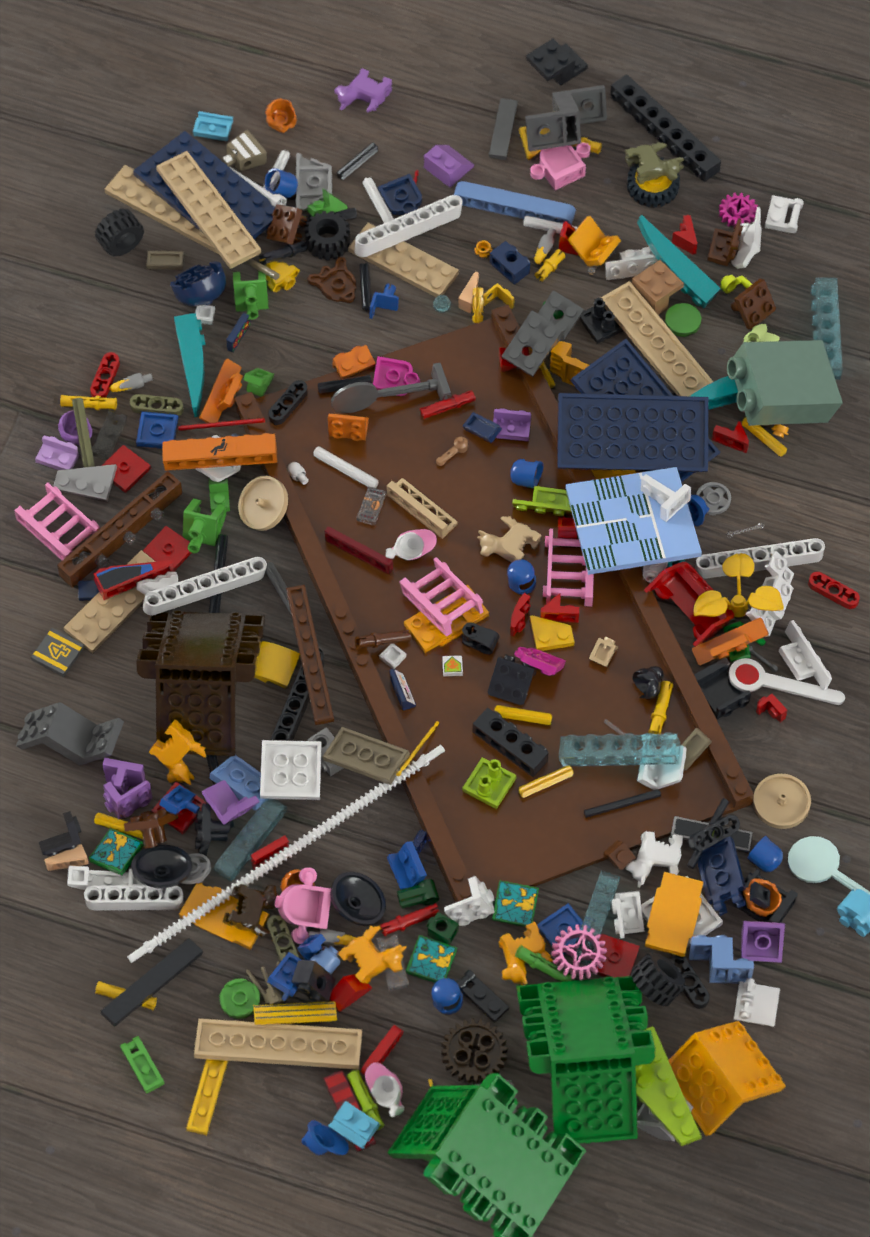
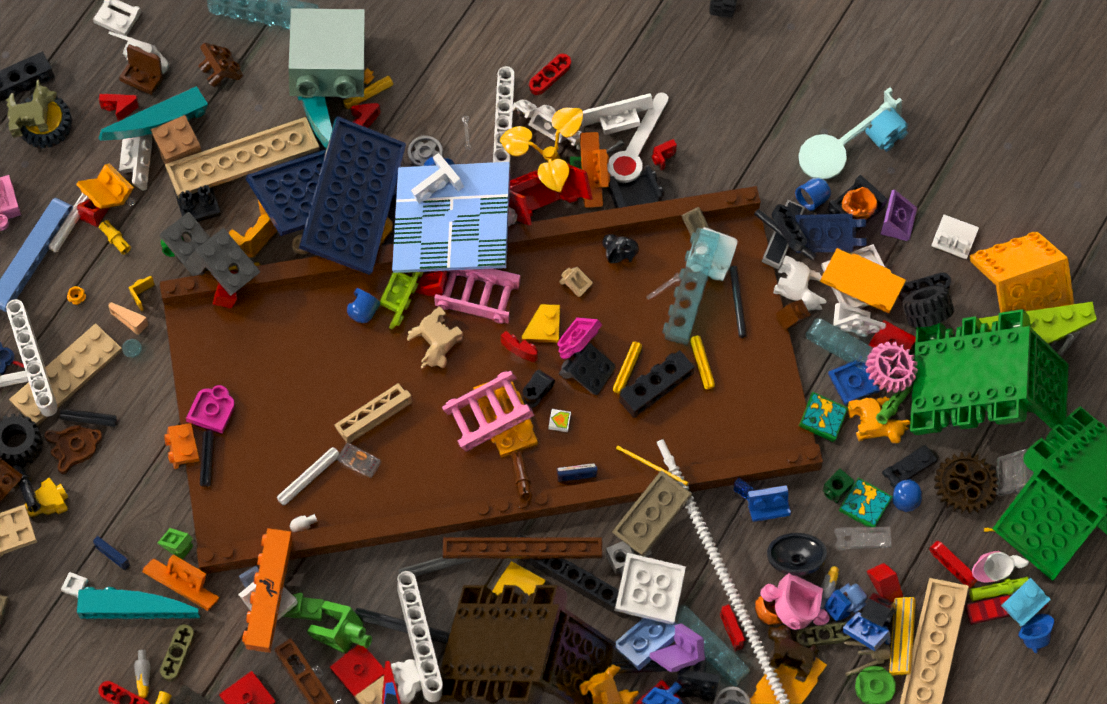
camera: 80 degrees left, 5 degrees up
(155, 429) = (208, 657): blue tile -> none
(199, 284) = (42, 578): dark blue cylinder -> none
(221, 424) = (226, 586): red axle -> none
(250, 295) = (72, 530): bright green piece -> none
(262, 268) = (47, 508): dark tan bar -> none
(263, 503) = (332, 562): tan piece -> none
(287, 410) = (209, 504): black beam -> none
(347, 426) = (260, 463): orange bracket -> none
(358, 550) = (411, 481): dark red tile -> none
(362, 394) = (233, 367): dark grey piece -> none
(370, 958) = (860, 555): light orange animal -> none
(384, 300) = (112, 401): blue bracket -> none
(392, 656) = (537, 473): white tile -> none
(401, 923) = (823, 521): red pin -> none
(412, 544) = (420, 428): white hair -> none
(423, 893) = (798, 501): dark green piece -> none
(455, 401) = (258, 356): red pin -> none
(460, 446) = (310, 363): medium nougat piece -> none
(474, 907) = (819, 438): white bracket -> none
(477, 304) = (147, 312): yellow axle -> none
(482, 427) = (297, 336): dark blue tile -> none
(489, 782) = (695, 412): lime plate -> none
(510, 262) = (98, 281): dark blue brick -> none
(514, 424) = (301, 310): medium lavender bracket -> none
(520, 573) = (477, 336): blue helmet -> none
(545, 245) = (90, 237): light grey piece -> none
(558, 613) = (522, 312): red slope -> none
(659, 715) = (651, 247): yellow pin -> none
(683, 319) = (214, 131): bright green tile -> none
(720, 956) = (914, 251): medium blue bracket -> none
(730, 206) = (103, 52): dark pink gear -> none
(730, 282) = (186, 80): neon yellow plate -> none
(760, 334) = (260, 68): yellowish green plate -> none
(760, 895) = (861, 203): black tile -> none
(782, 801) = (759, 167): tan piece -> none

